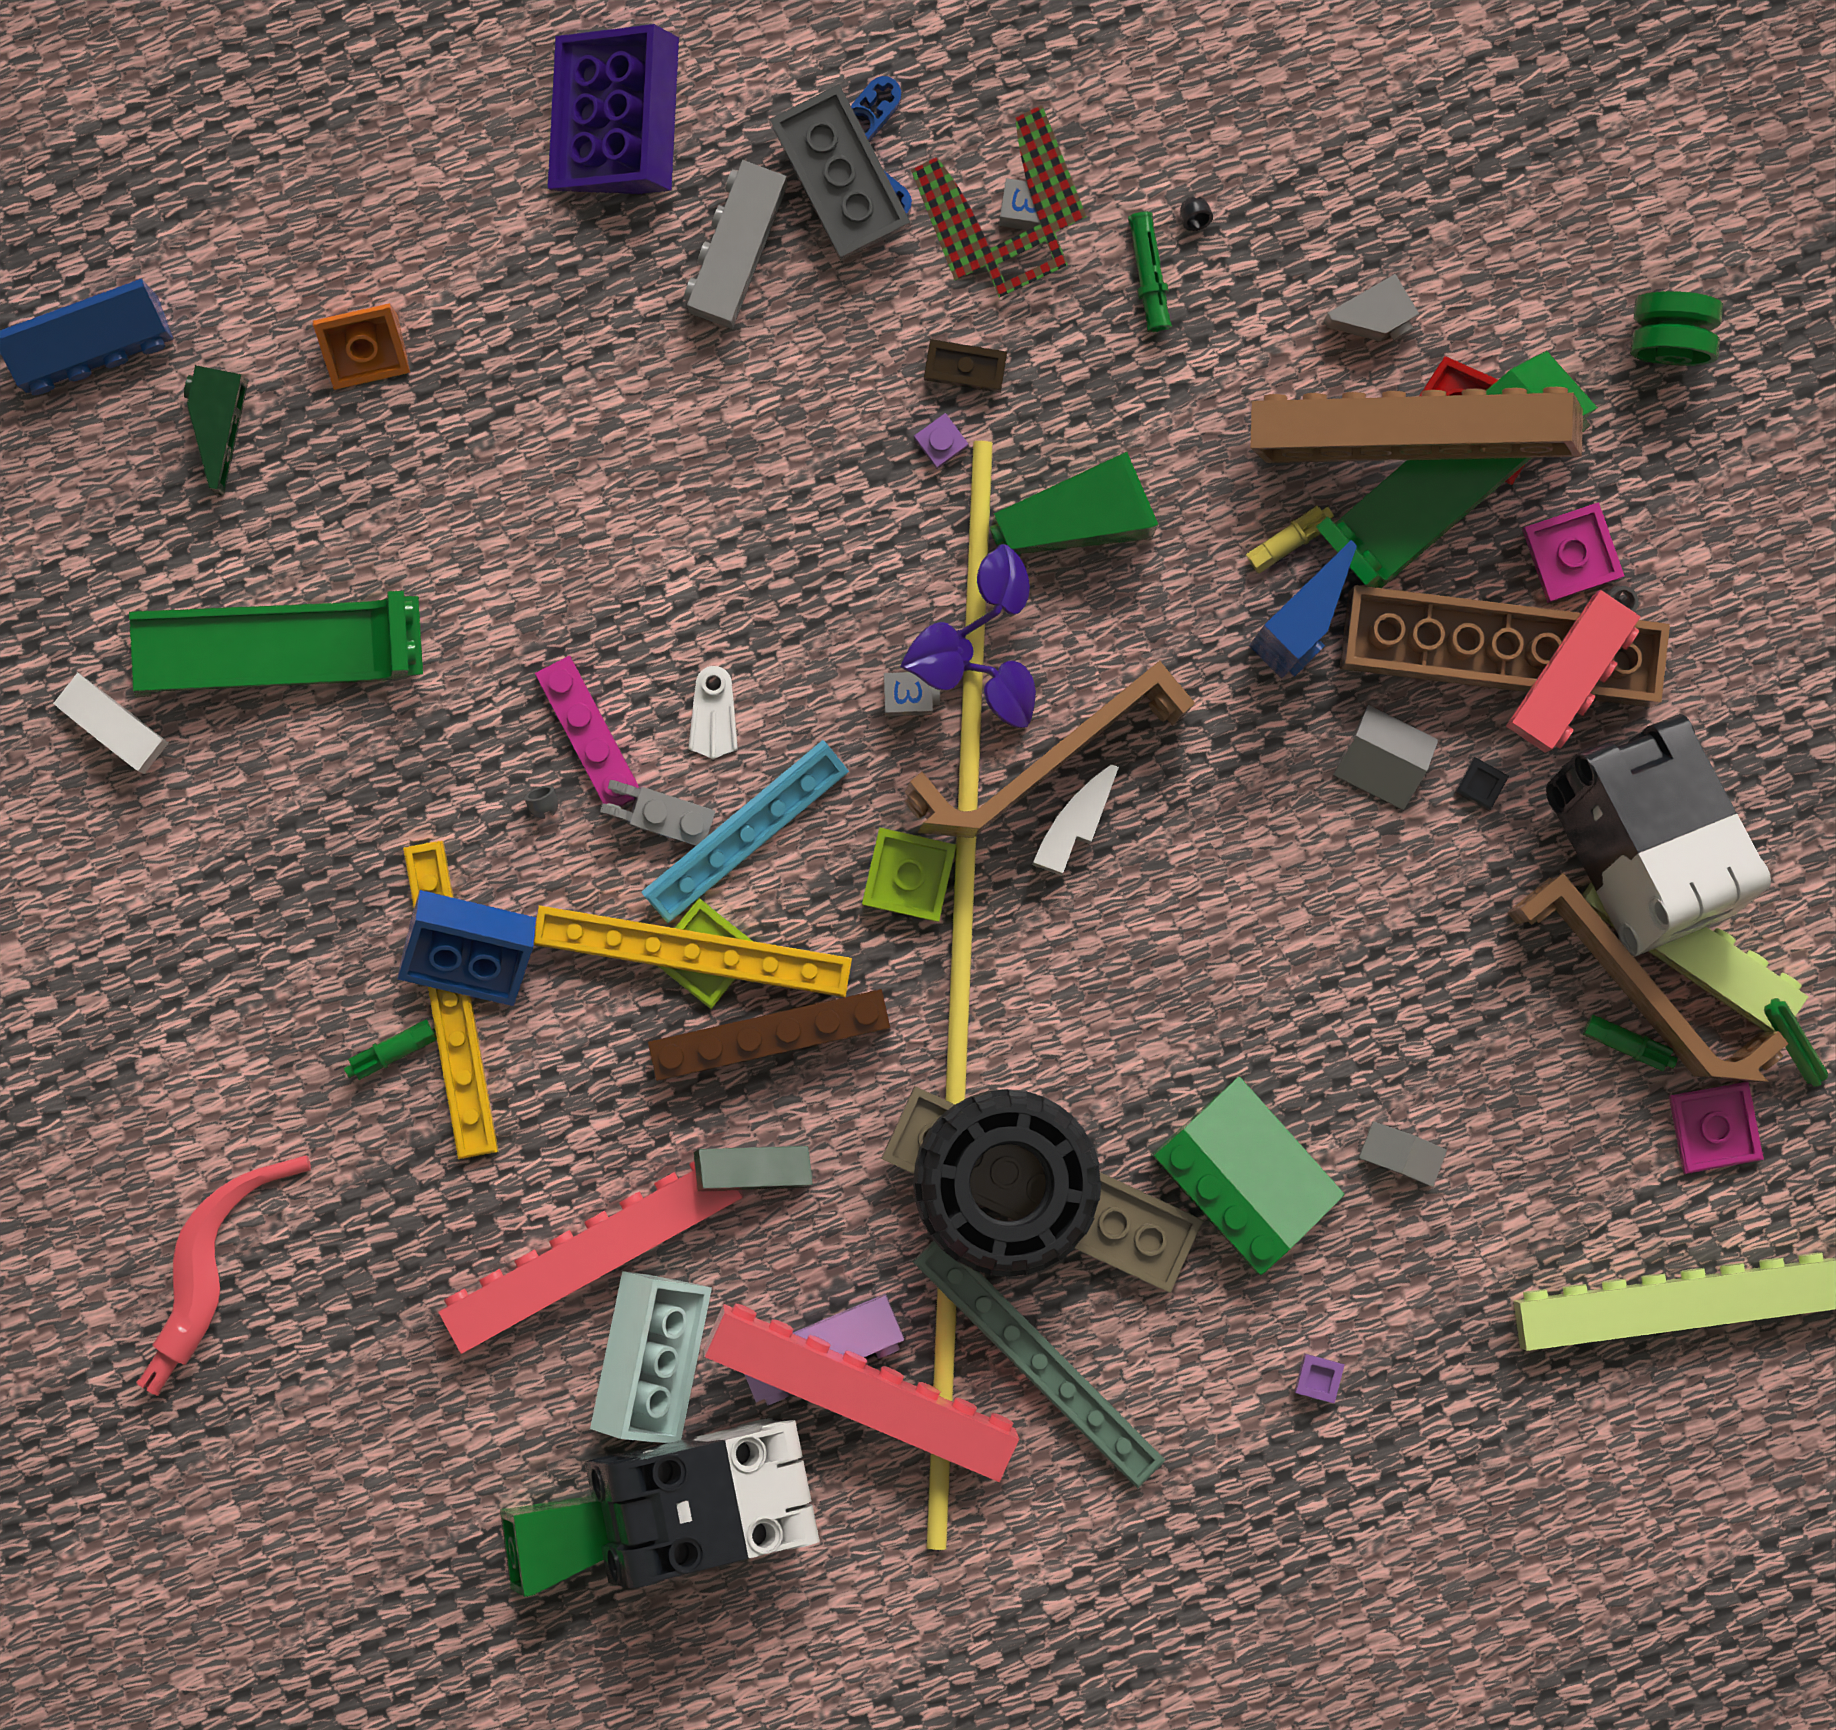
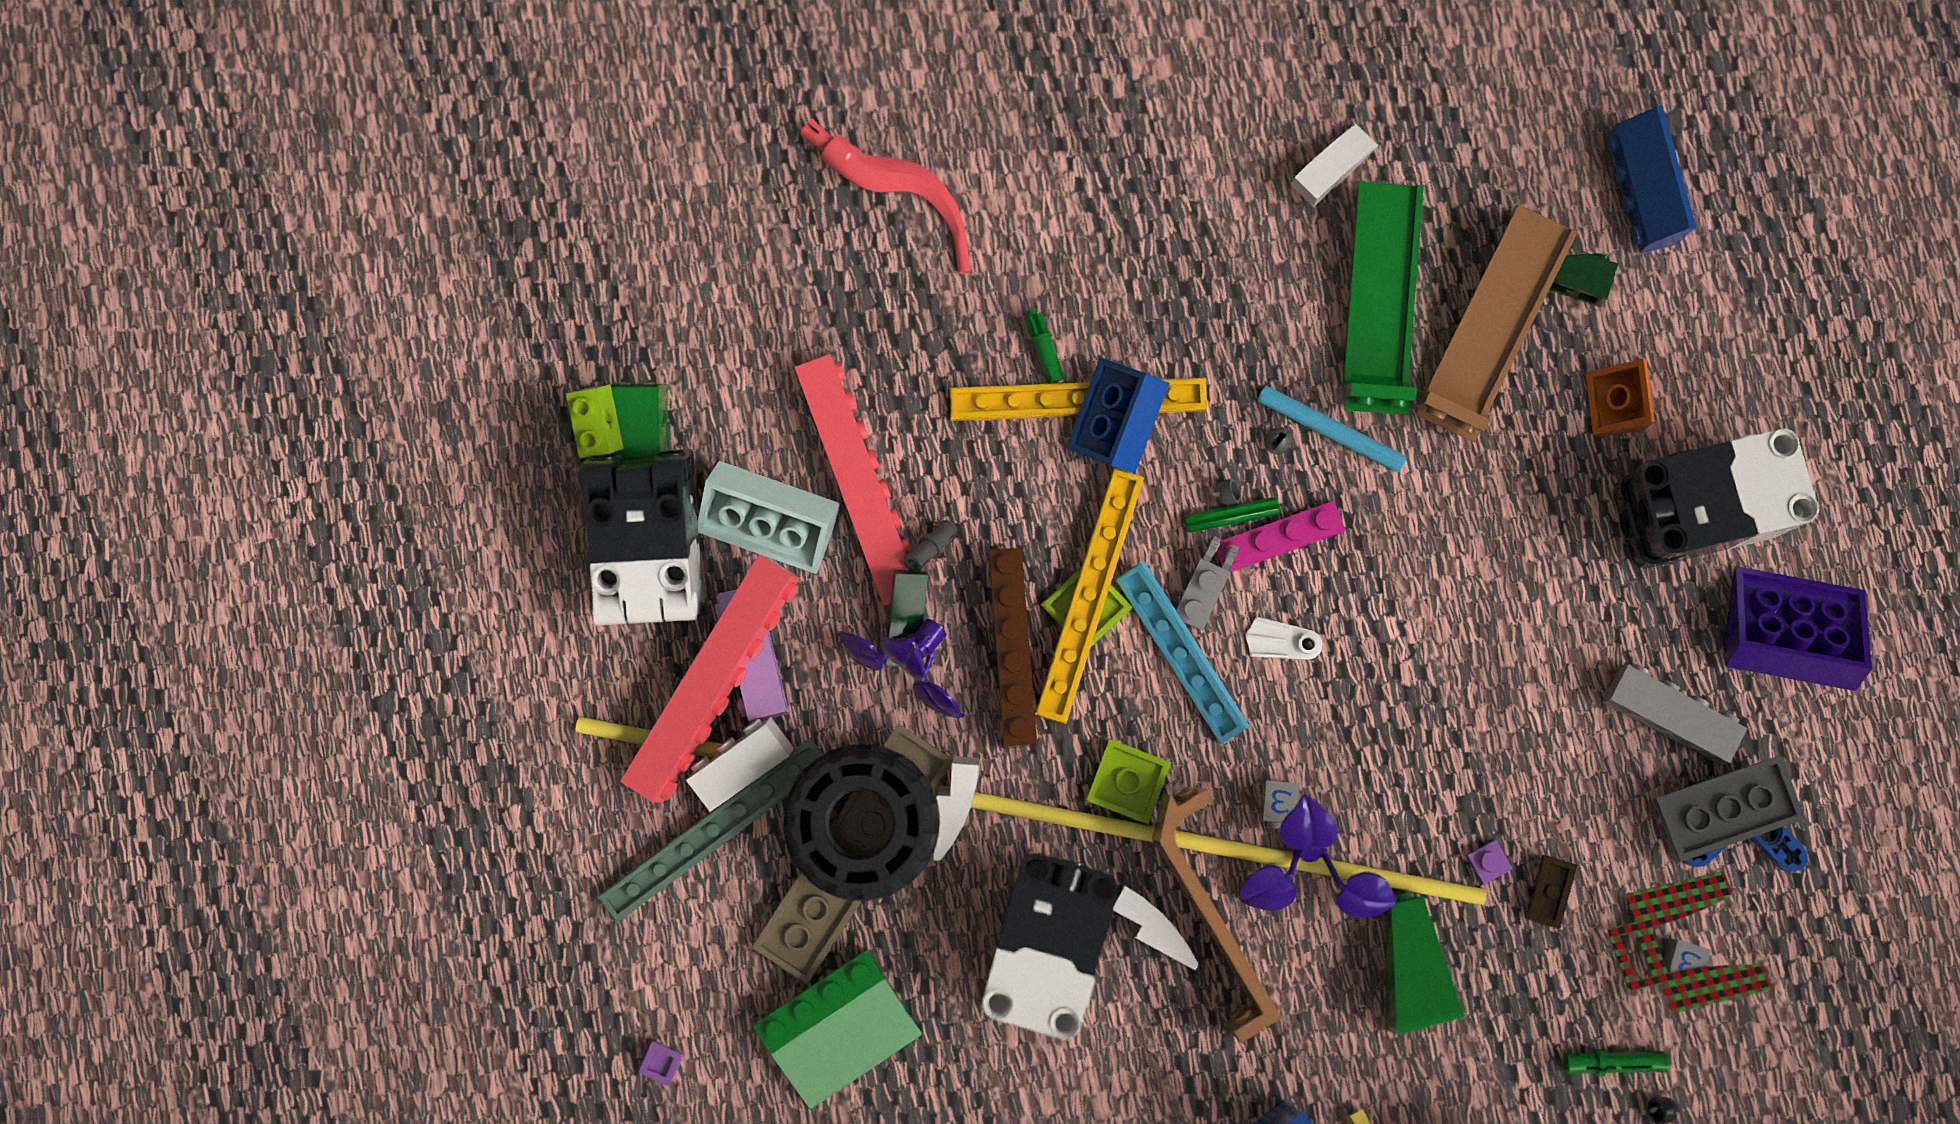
camera: 105 degrees right, 5 degrees down
(290, 505) = (1495, 323): none -> medium nougat panel
(445, 687) = (1332, 429): none -> medium azure axle
(464, 756) = (1284, 444): none -> dark grey hinge
(474, 223) = (1715, 498): none -> black piece
(568, 793) = (1232, 514): none -> green axle
(568, 1586) = (594, 421): none -> lime brick
(660, 1152) = (930, 546): none -> dark grey pin
(804, 1156) = (908, 655): none -> dark purple plant
(955, 1342) = (739, 762): none -> white brick
(964, 1075) = (956, 802): none -> white slope
(1117, 940) = (1050, 946): none -> piece

